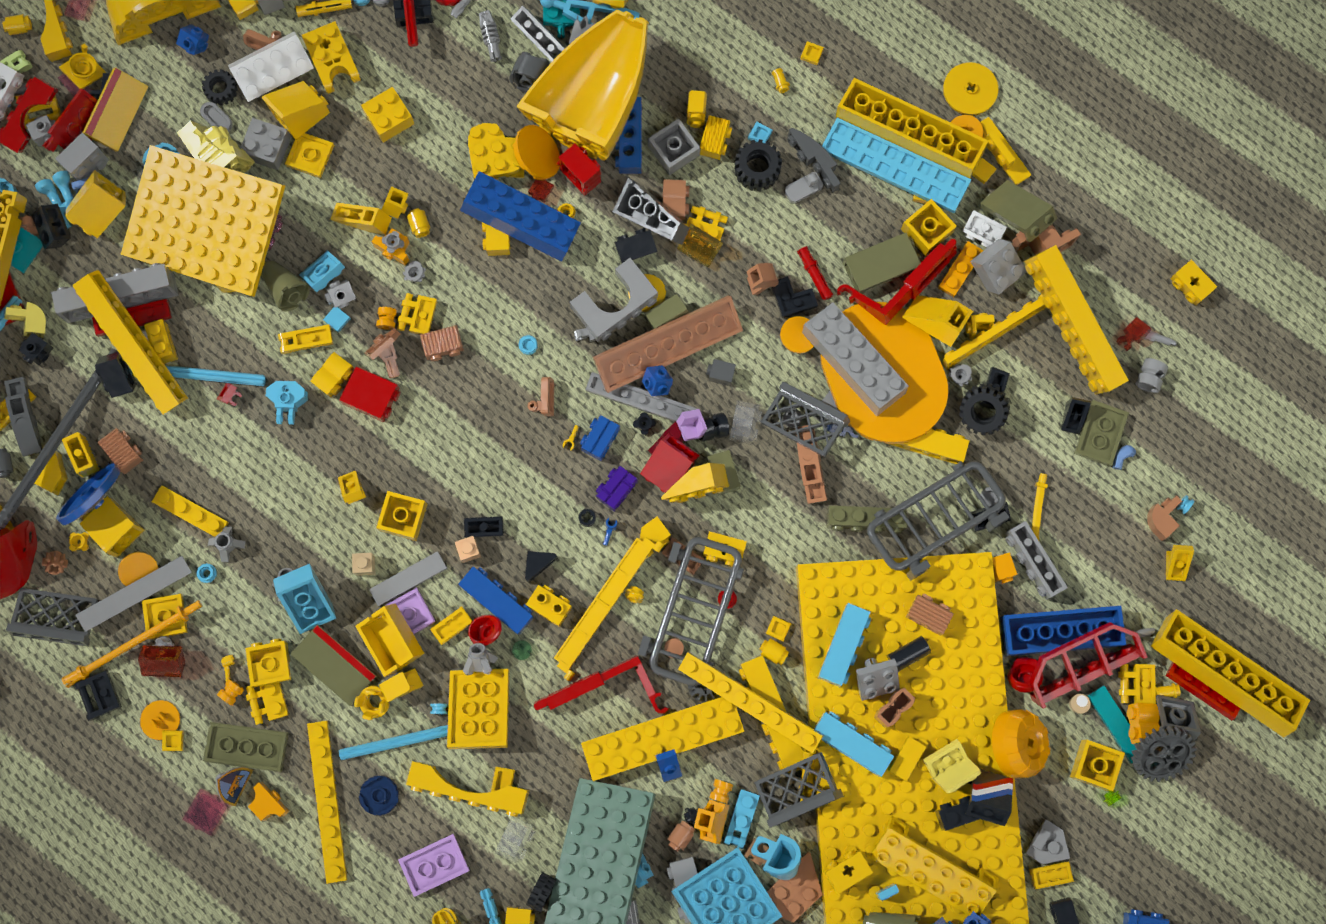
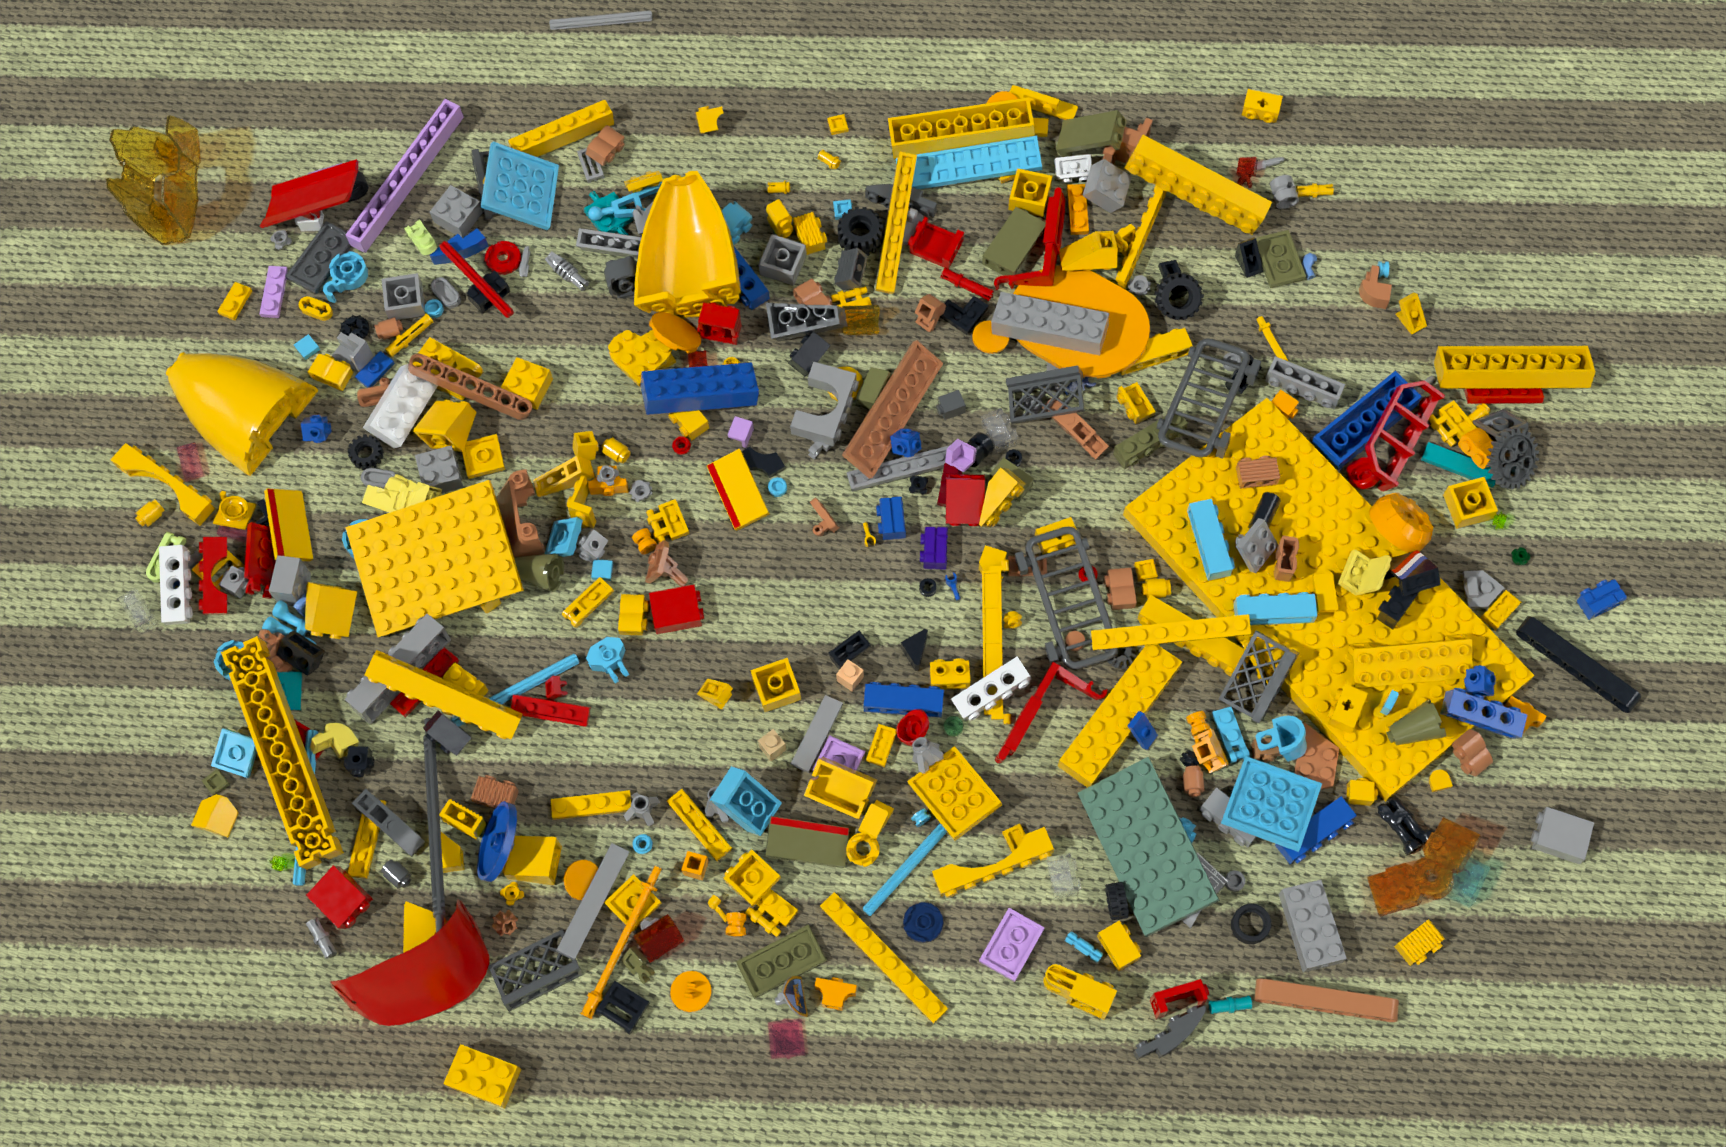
camera: 30 degrees left, 10 degrees down
(37, 201) = (273, 641): none -> nougat piece
(132, 670) = (636, 963): none -> olive plate
(172, 740) = (714, 999): yellow tile -> none
(212, 411) = (551, 710): none -> red plate
(231, 621) = (695, 865): none -> light orange brick
(262, 588) = (699, 825): none -> yellow tile
(276, 19) = (374, 370): none -> blue plate
(285, 248) = (514, 494): none -> nougat windscreen
(331, 79) = (460, 386): none -> nougat beam
(352, 248) = (576, 504): none -> yellow bracket
(442, 343) = (706, 530): nougat brick -> none
(475, 249) = (681, 440): none -> red plate
(493, 325) = (738, 489): none -> yellow tile
(523, 306) = (767, 463): none -> black tile
(531, 276) = (741, 430): none -> lavender panel
(541, 637) = (979, 689): none -> white brick
(656, 85) = (737, 220): none -> medium azure brick
(720, 78) = (779, 187): none -> yellow pin
(725, 194) = (850, 269): none -> dark grey brick
(740, 449) = (1009, 455): none -> black bush
(744, 630) = (1121, 589): none -> nougat brick
(792, 178) = (896, 222): none -> yellow plate
(815, 218) = (935, 243): none -> red panel
(879, 477) = (1135, 402): none -> yellow bracket
(966, 101) = (988, 84): yellow piece -> none
(1079, 703) = (1420, 468): tan tile -> none
(1100, 840) = (1525, 556): none -> dark green plate
(1181, 391) = (1315, 190): none -> yellow pin

